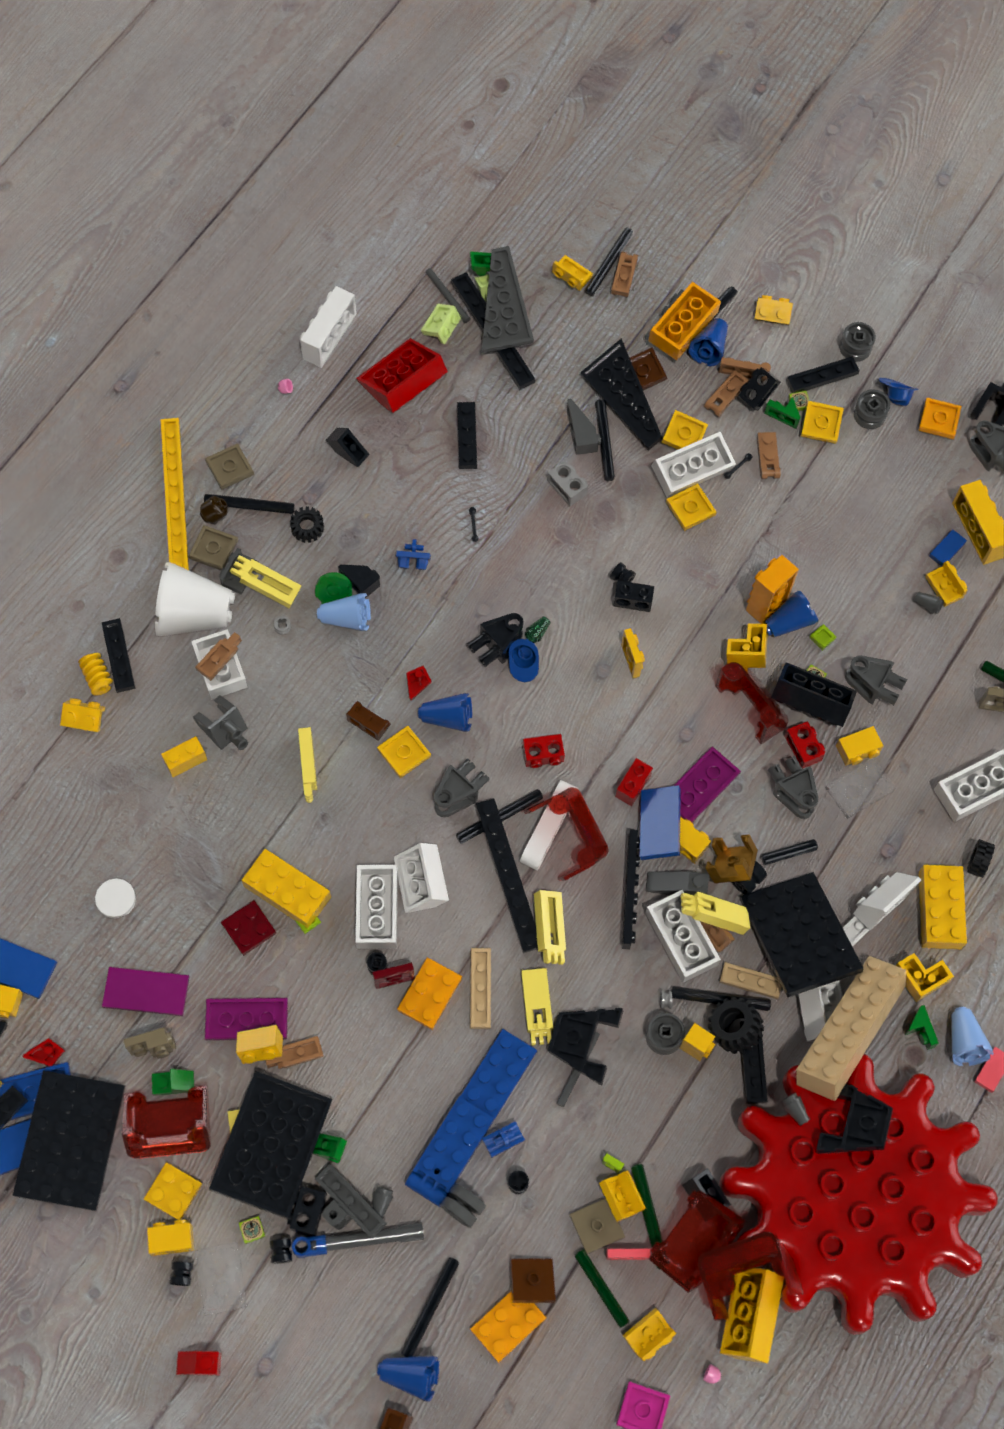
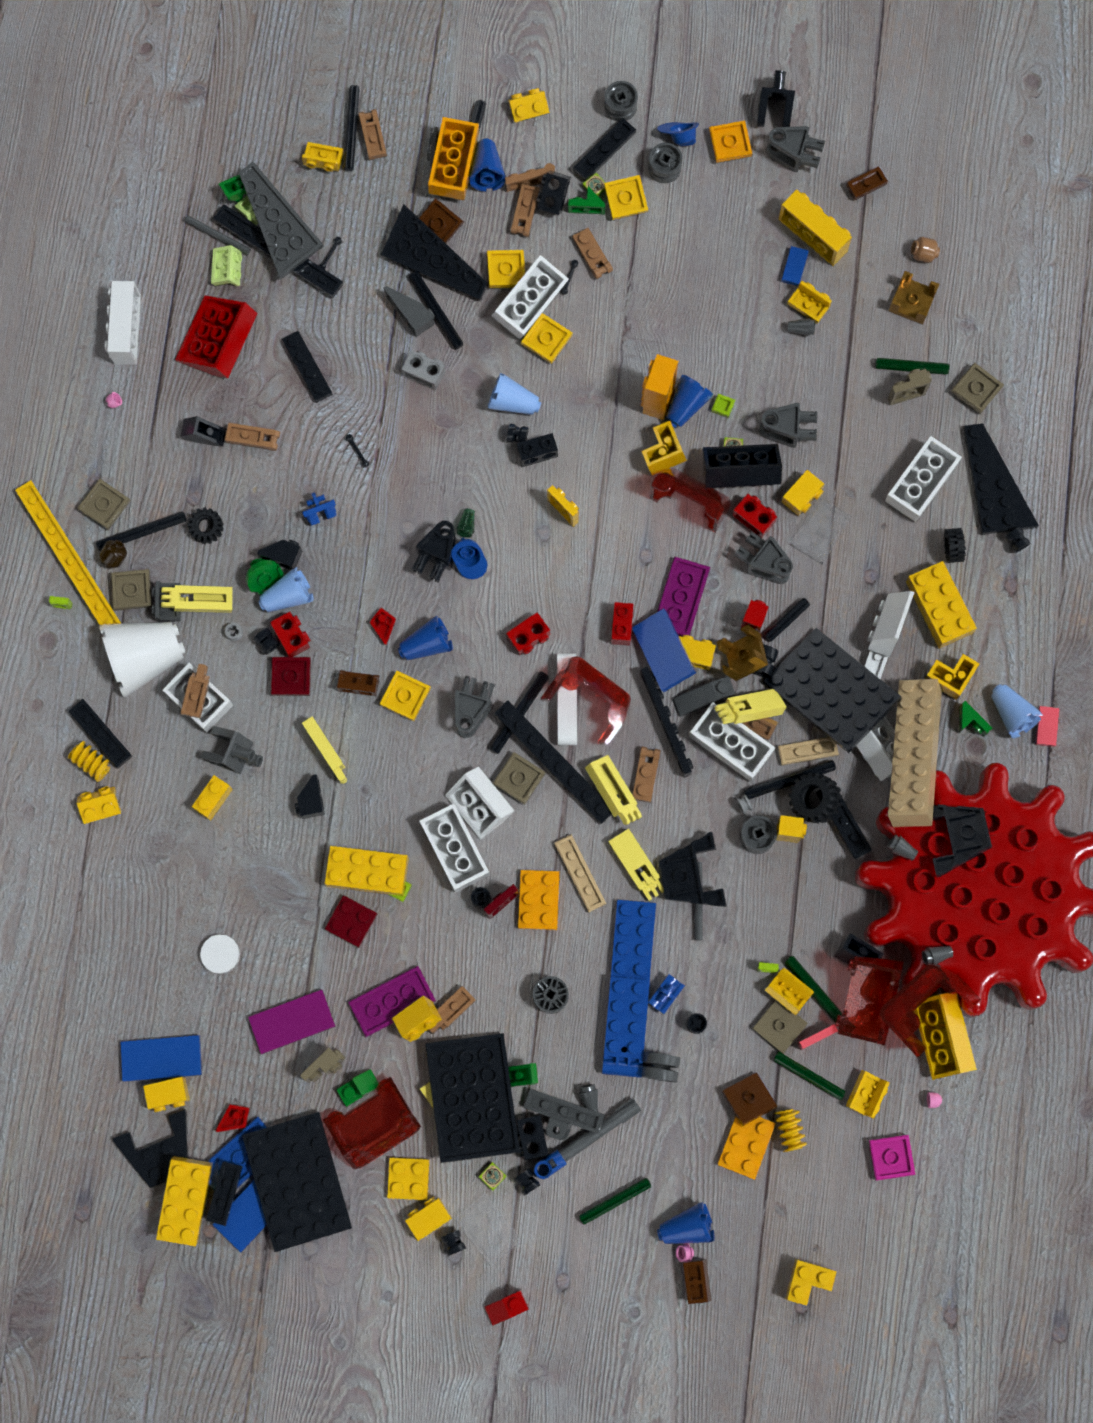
camera: 20 degrees left, 10 degrees up
(146, 529) = (60, 602): none -> lime tile
(270, 801) = (310, 799): none -> black slope
(306, 645) = (266, 641): none -> black wheel
(311, 686) = (291, 676): none -> dark red plate
(328, 650) = (287, 636): none -> red brick
(347, 1314) = (615, 1201): none -> dark green axle
(388, 469) = (252, 436): none -> medium nougat plate
(389, 1076) = (553, 985): none -> dark grey wheel
(394, 1399) = (684, 1253): none -> bright pink plate
(430, 1307) = (675, 1164): black axle -> none
(468, 874) = (519, 778): none -> dark tan plate
(549, 346) = (338, 241): none -> black hinge
(557, 1331) = (791, 1130): none -> yellow piece
(587, 928) = (646, 775): none -> medium nougat plate
(634, 541) = (513, 397): none -> light blue cone
(761, 831) = (755, 615): none -> red brick
(781, 1227) = (936, 954): none -> dark grey cone

